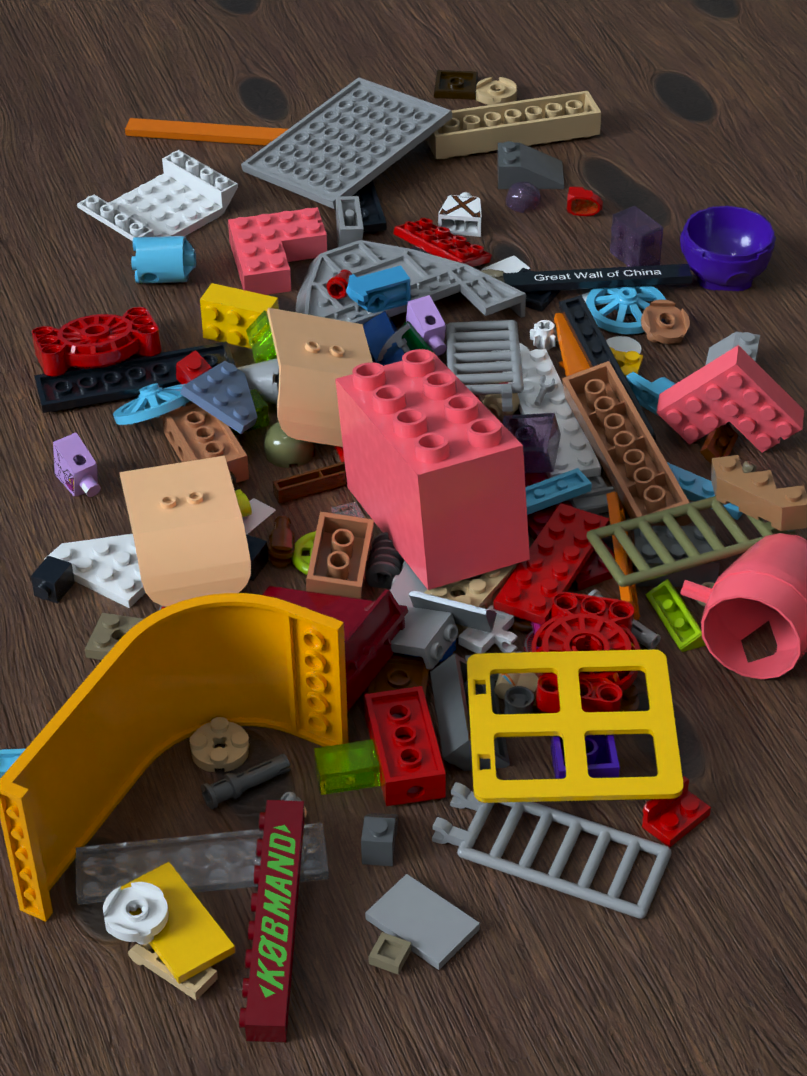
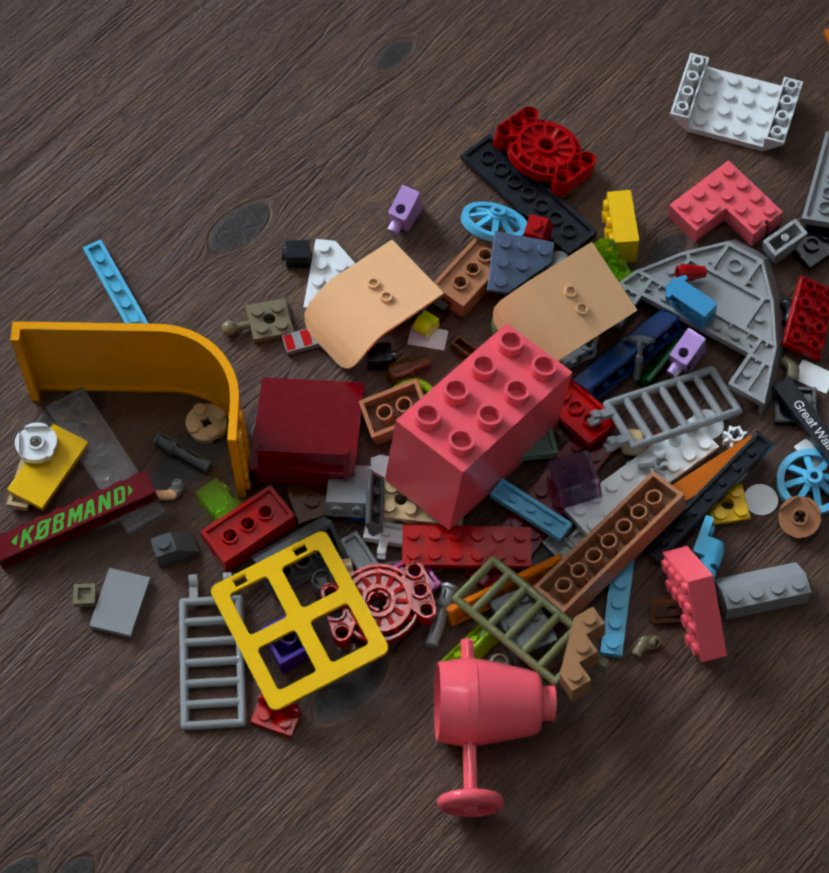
camera: 65 degrees right, 20 degrees up
(162, 259) = (660, 142): medium azure cylinder -> none

